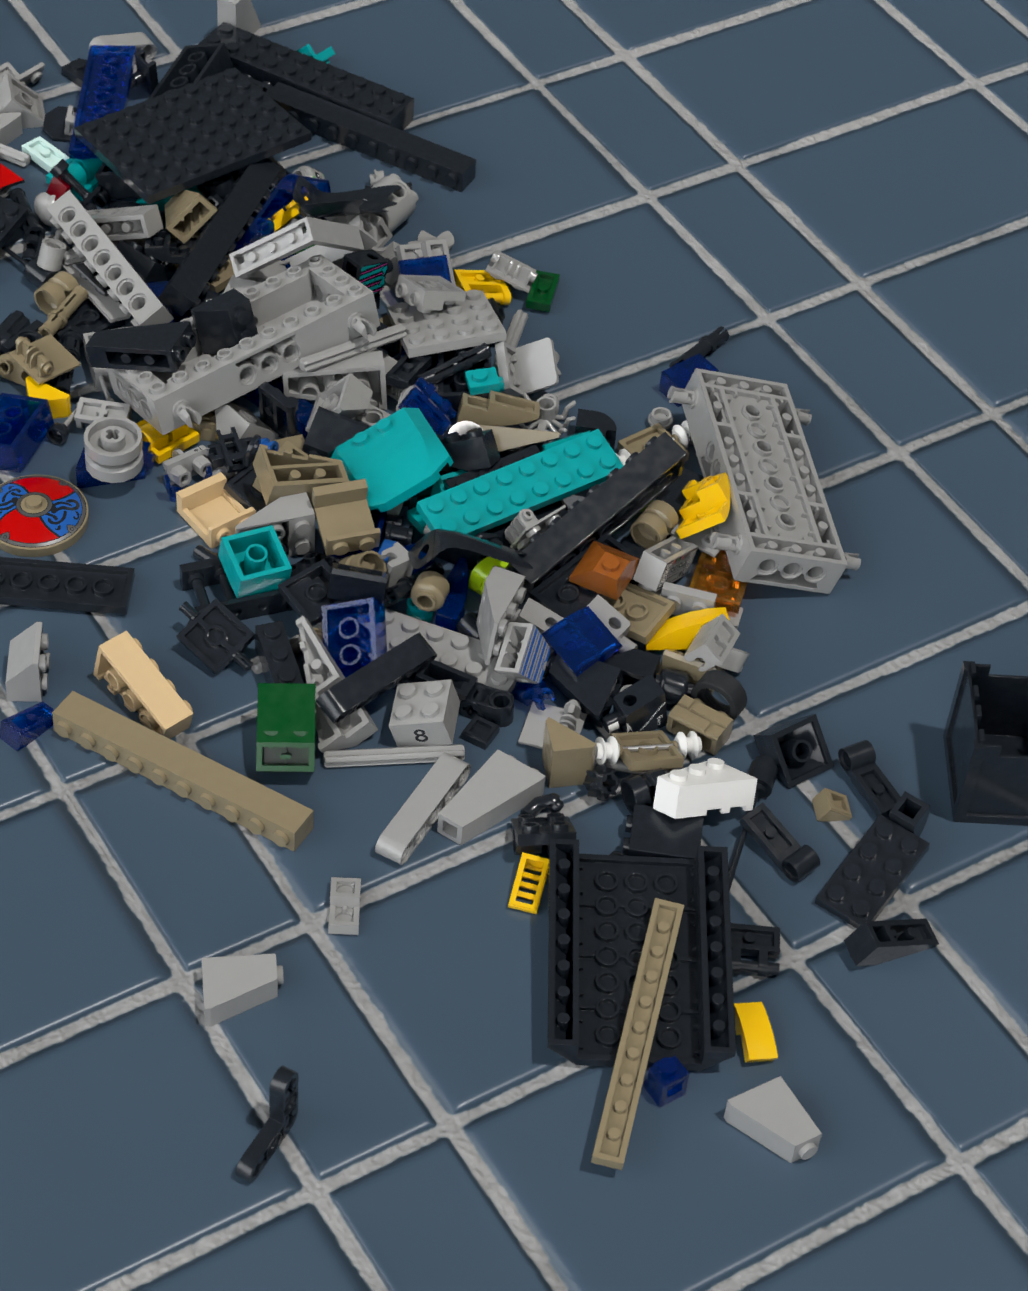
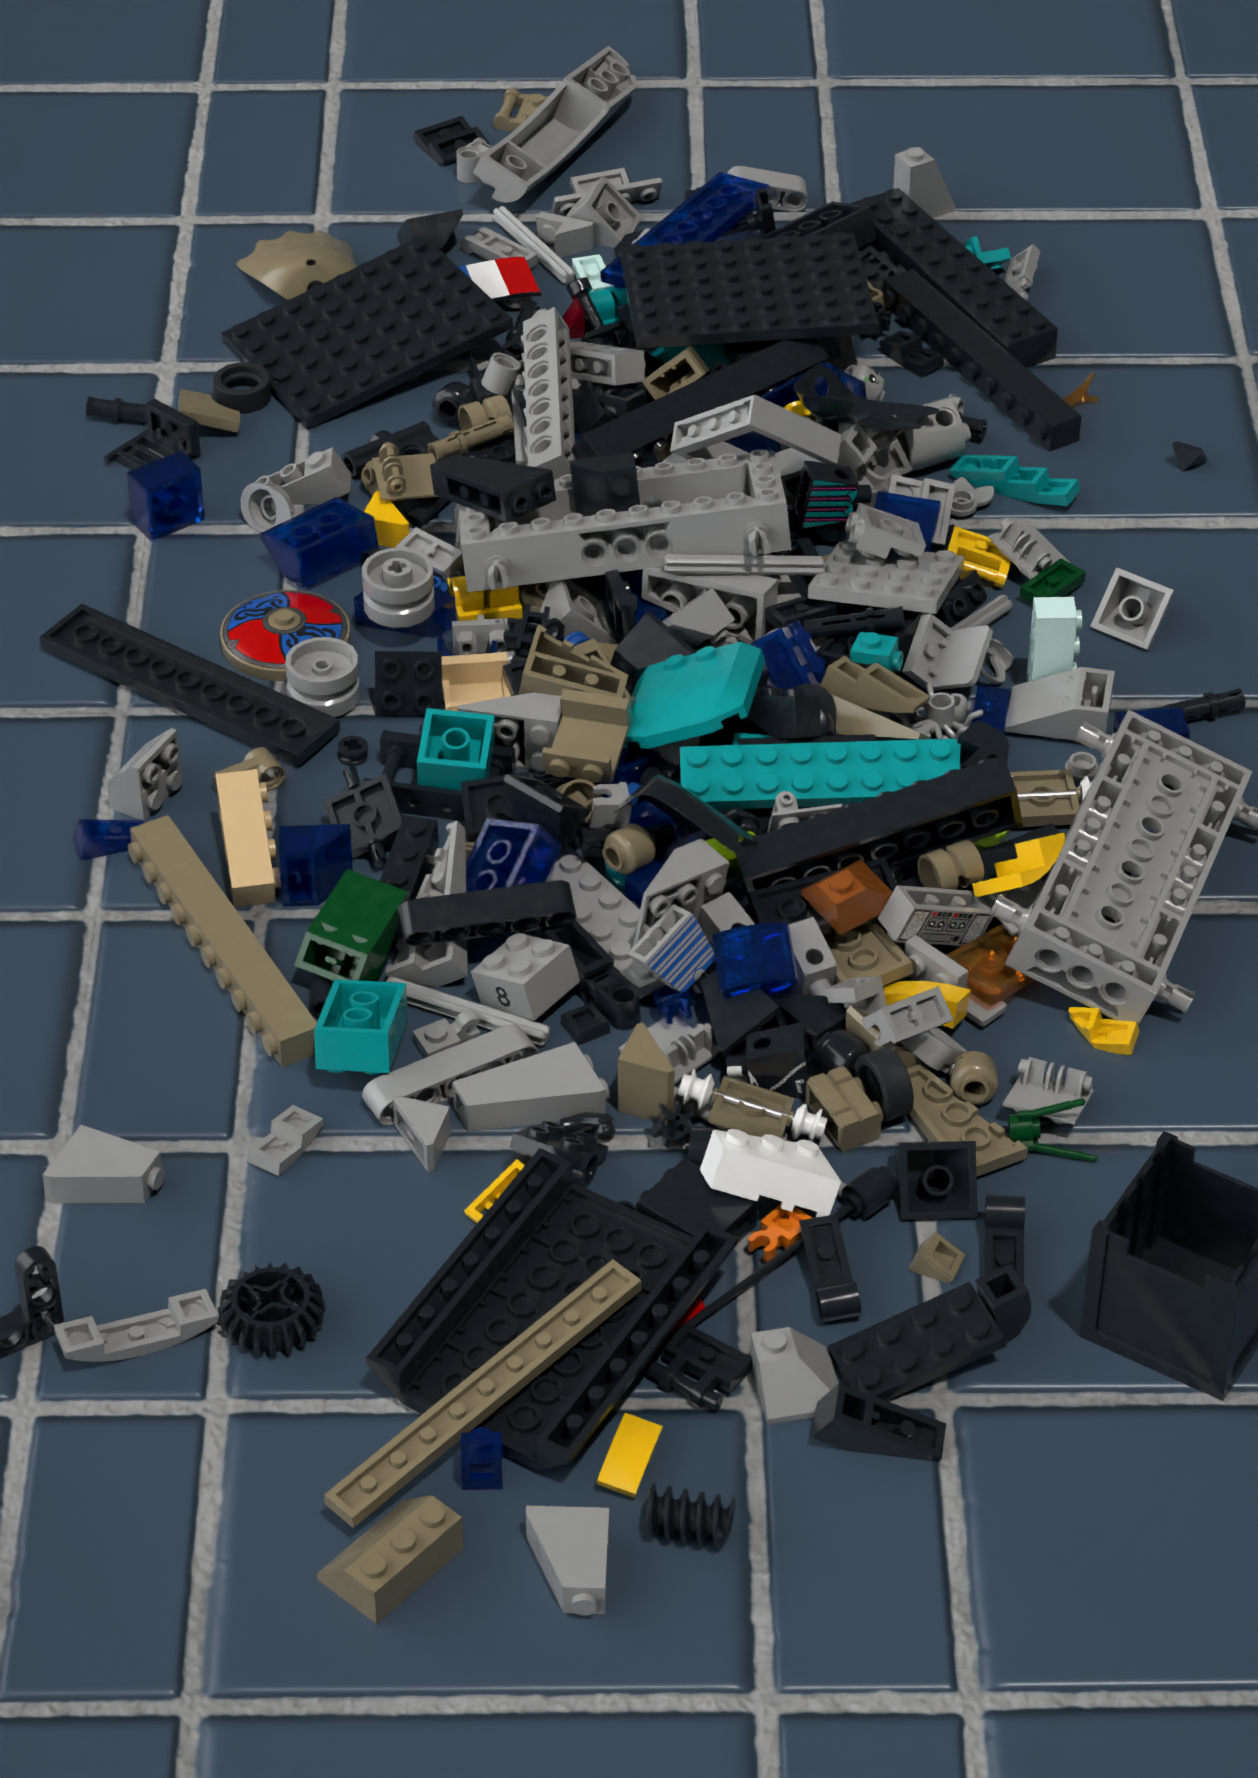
camera: 35 degrees right, 5 degrees down
(21, 288) = (449, 399): none -> black head
(99, 536) = (324, 675): none -> light grey wheel
(100, 629) = (267, 766): none -> dark tan piece
(155, 594) = (349, 757): none -> black bush
(167, 521) = (407, 682): none -> black hinge
(208, 686) = (313, 861): none -> clear blue slope
(287, 786) = (319, 992): none -> black hinge
(320, 149) = (908, 352): none -> black slope
(345, 798) = (361, 1026): none -> teal brick
(347, 58) = (1022, 270): none -> light grey hinge
(359, 1094) = (138, 1335): none -> light grey slope
(394, 784) = (442, 1035): none -> light grey plate
(436, 856) = (423, 1127): none -> light grey slope
(453, 143) = (1080, 394): none -> clear orange bar
(458, 1032) = (274, 1319): none -> black gear
(459, 222) = (1015, 482): none -> teal slope
(558, 166) = (1188, 455): none -> black slope
(569, 391) = (995, 705): none -> clear blue slope
(593, 337) = (1053, 636): none -> light aqua brick
(612, 291) = (1132, 608): none -> light grey slope
(620, 377) = (1061, 703): none -> light grey slope
(657, 1175) = (395, 1556): none -> dark tan slope
(661, 637) = (860, 992): none -> light grey bracket
(726, 828) = (777, 1229): none -> orange plate
(764, 669) = (974, 1077): none -> dark tan head
(775, 707) = (948, 1119): none -> dark tan wing
(810, 930) = (790, 1373): none -> light grey slope
(813, 603) = (1105, 1034): none -> yellow slope
(819, 662) = (1037, 1090): none -> light grey hinge
(821, 690) = (1026, 1127): none -> dark green plant
(827, 1055) = (689, 1516): none -> black piece

